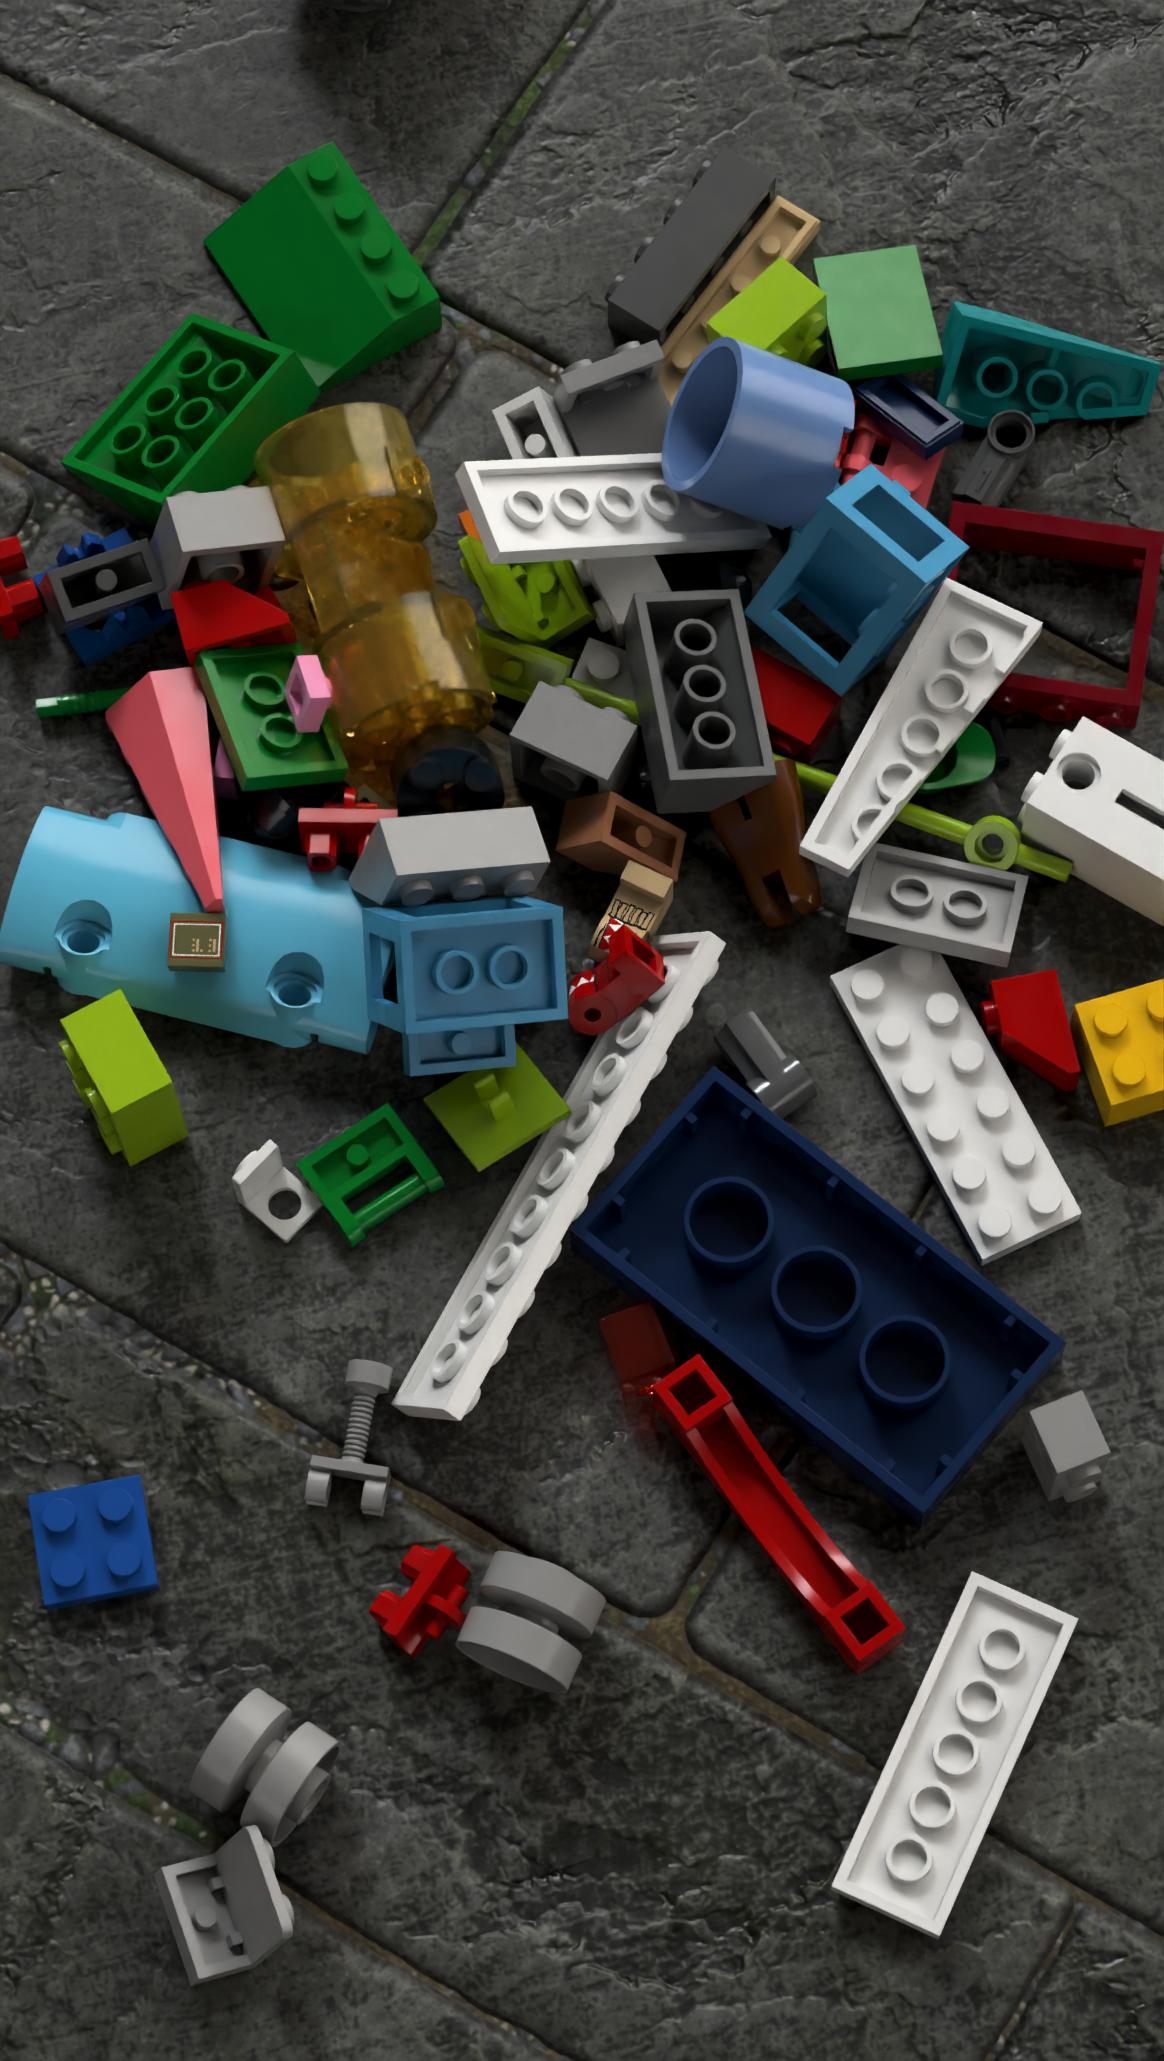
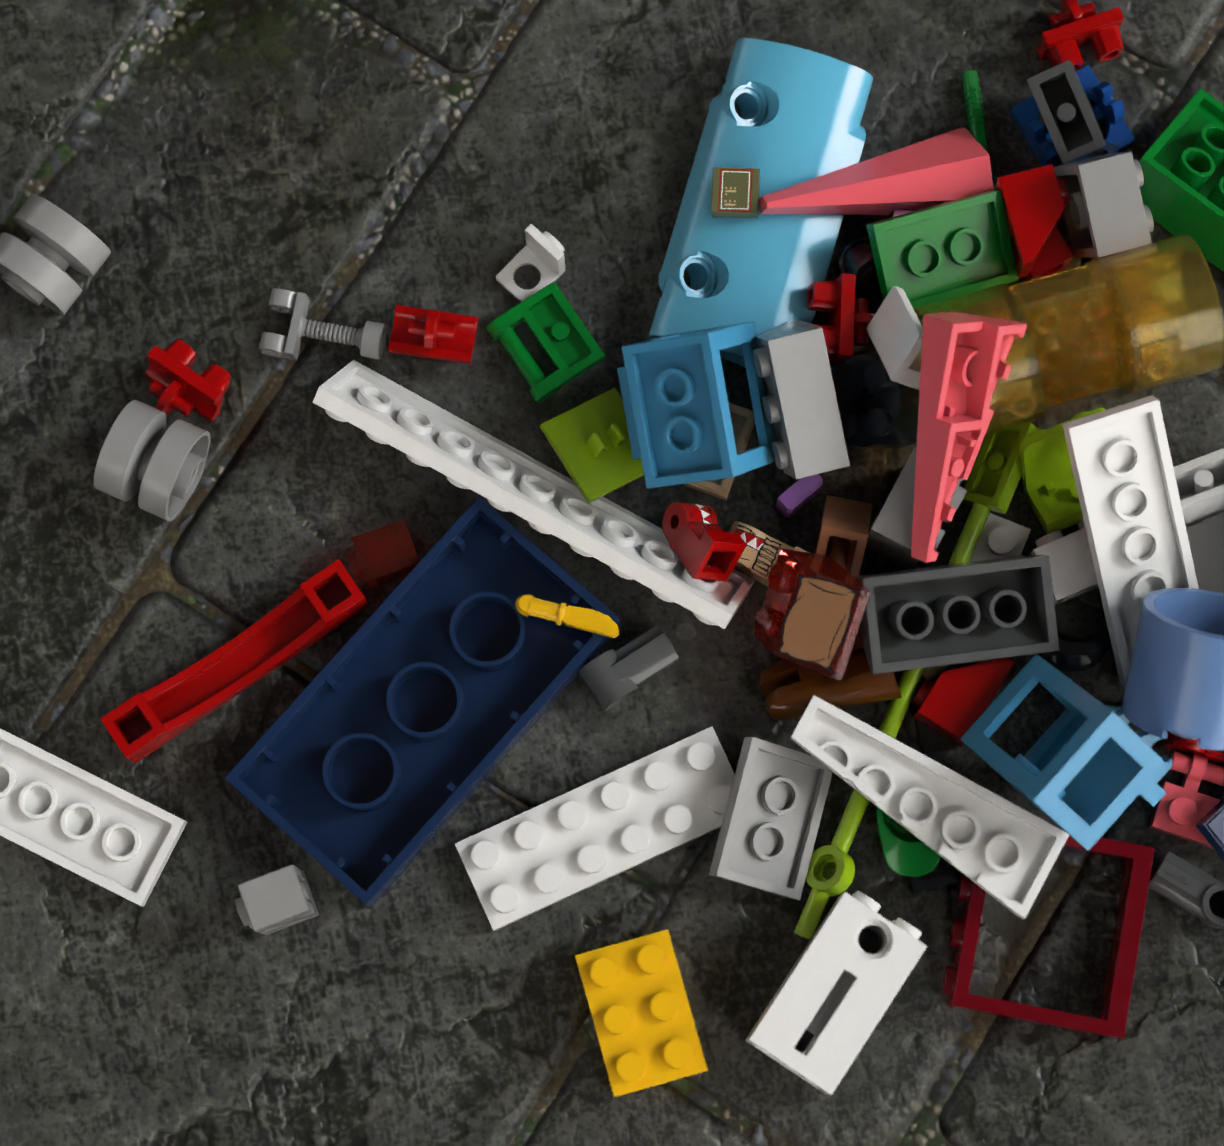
camera: 90 degrees right, 10 degrees up
(93, 1542) = (249, 129): blue plate -> none
(121, 1079) = (616, 133): lime brick -> none
(308, 693) = (956, 280): bright pink plate -> none
(364, 1300) = (433, 334): none -> red hips
(384, 746) = (898, 338): none -> white panel
(450, 670) = (958, 375): none -> coral wedge
(558, 888) = (799, 495): none -> medium lavender tile
(704, 846) = (811, 612): none -> slope
(712, 1122) = (571, 616): none -> yellow piece
(1033, 1026) = (661, 896): red slope -> none

